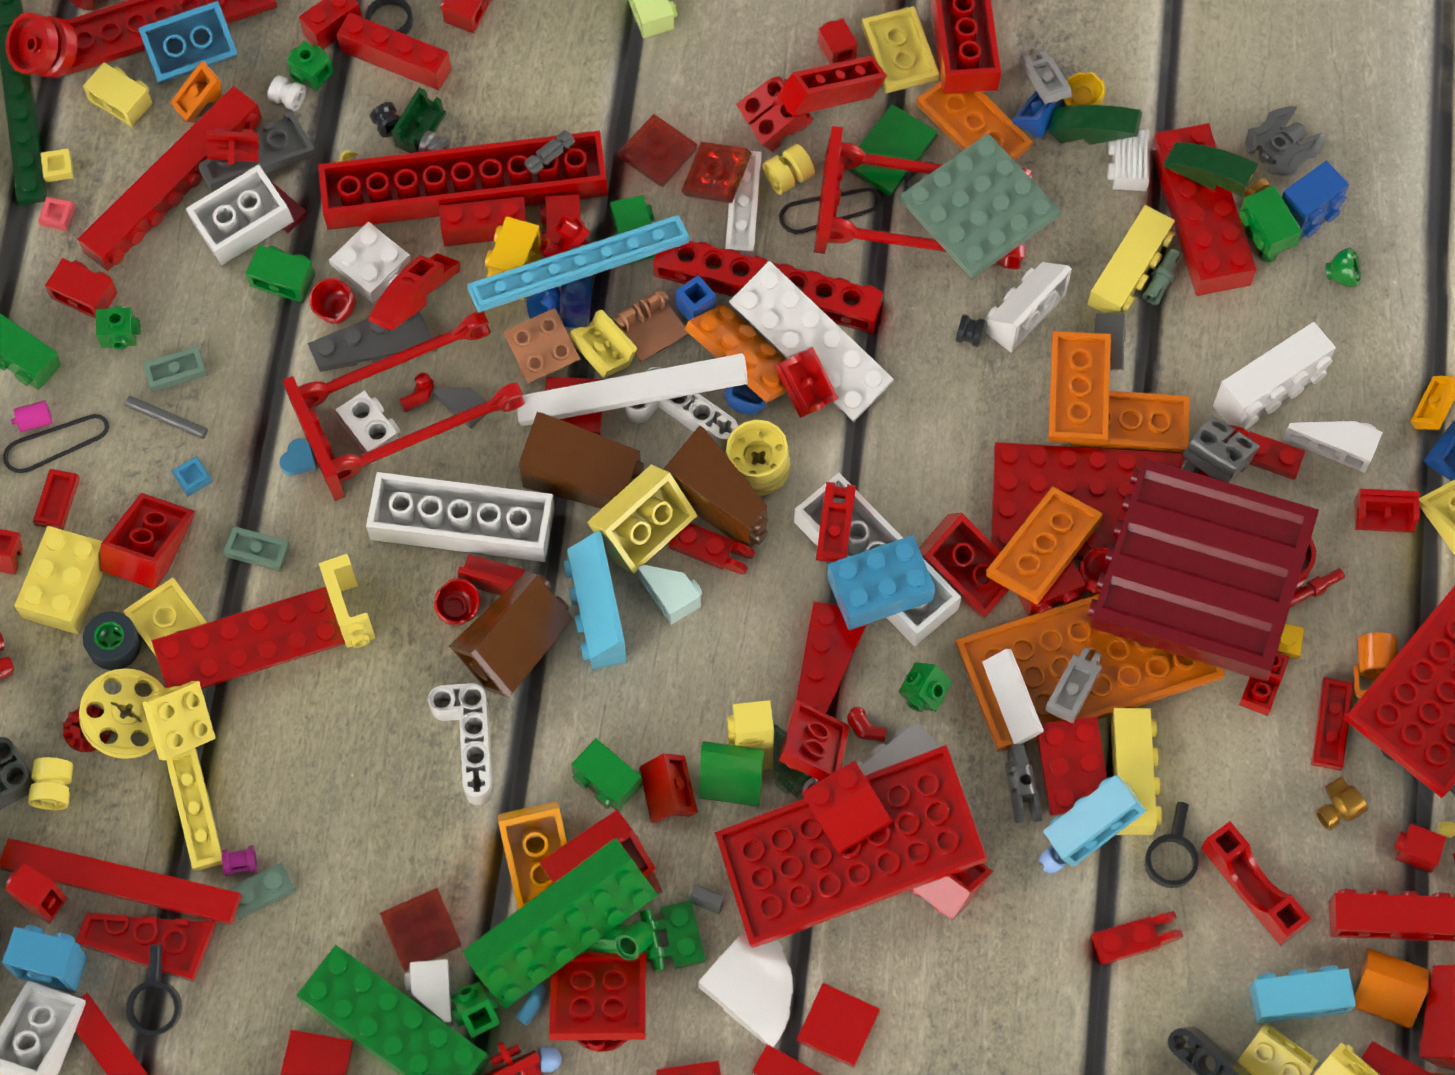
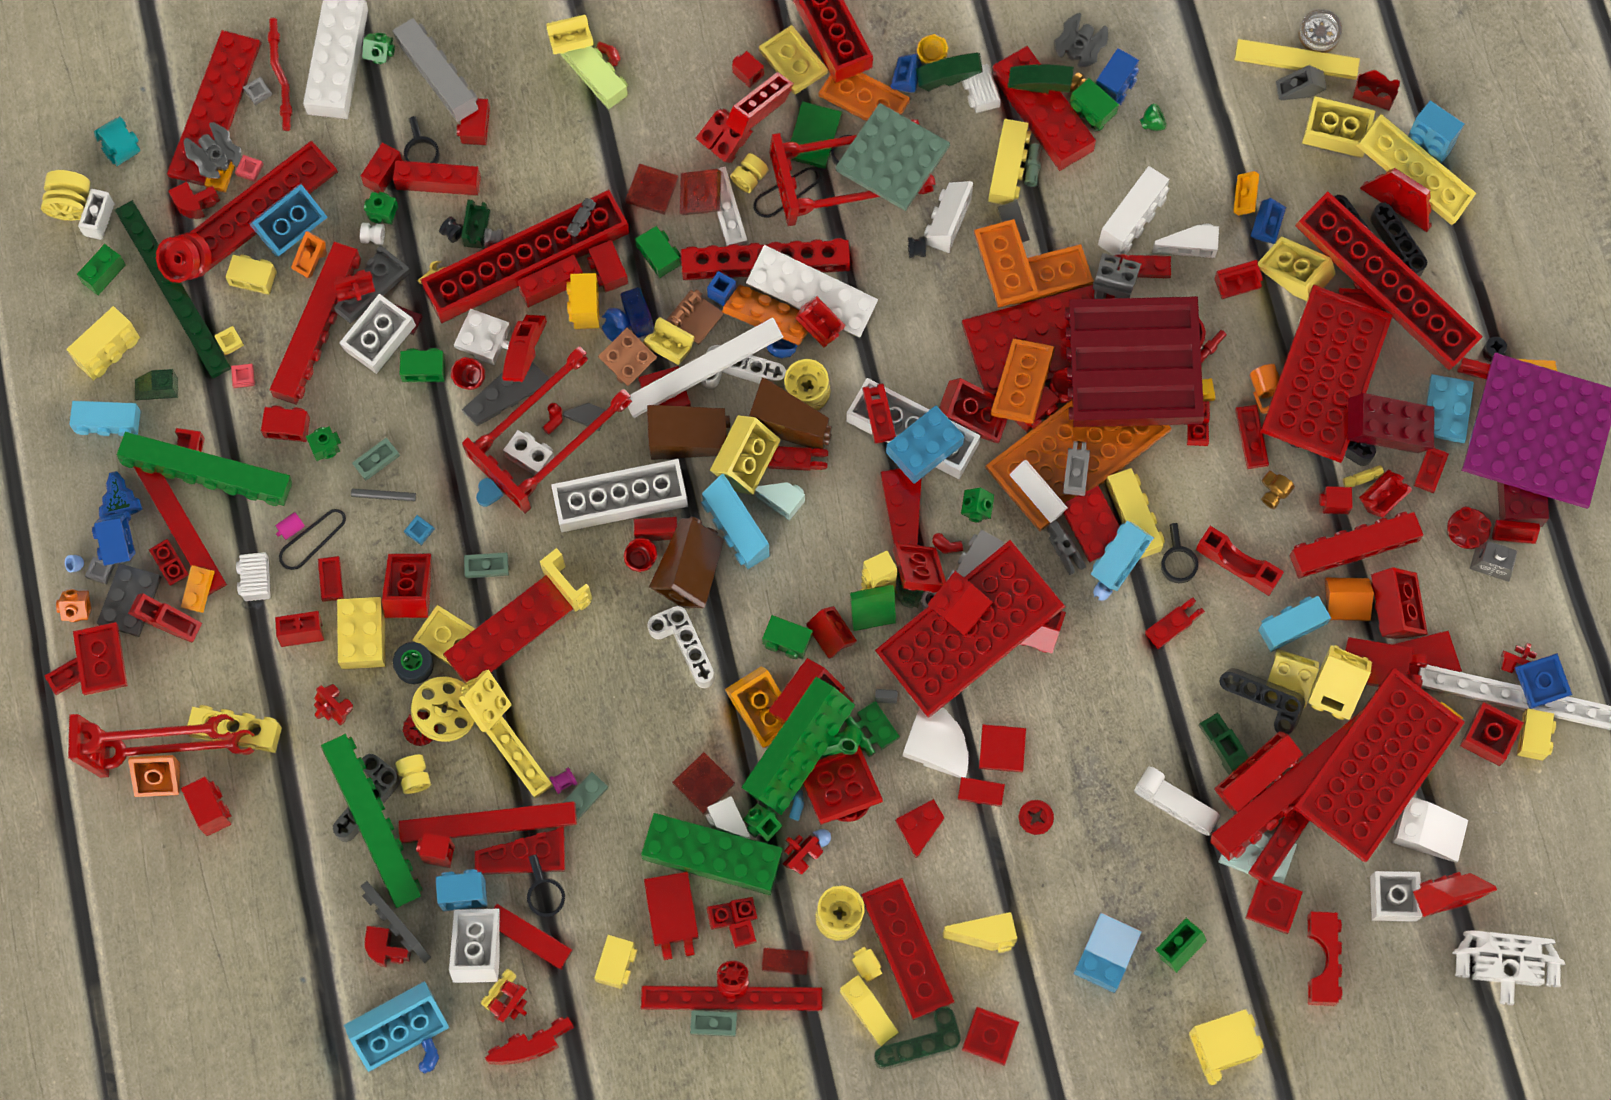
camera: 20 degrees left, 5 degrees up
(573, 236) = (620, 279): red hips -> none
(578, 263) = (633, 290): medium azure tile -> none
(1046, 76) = (902, 47): light grey hinge -> none

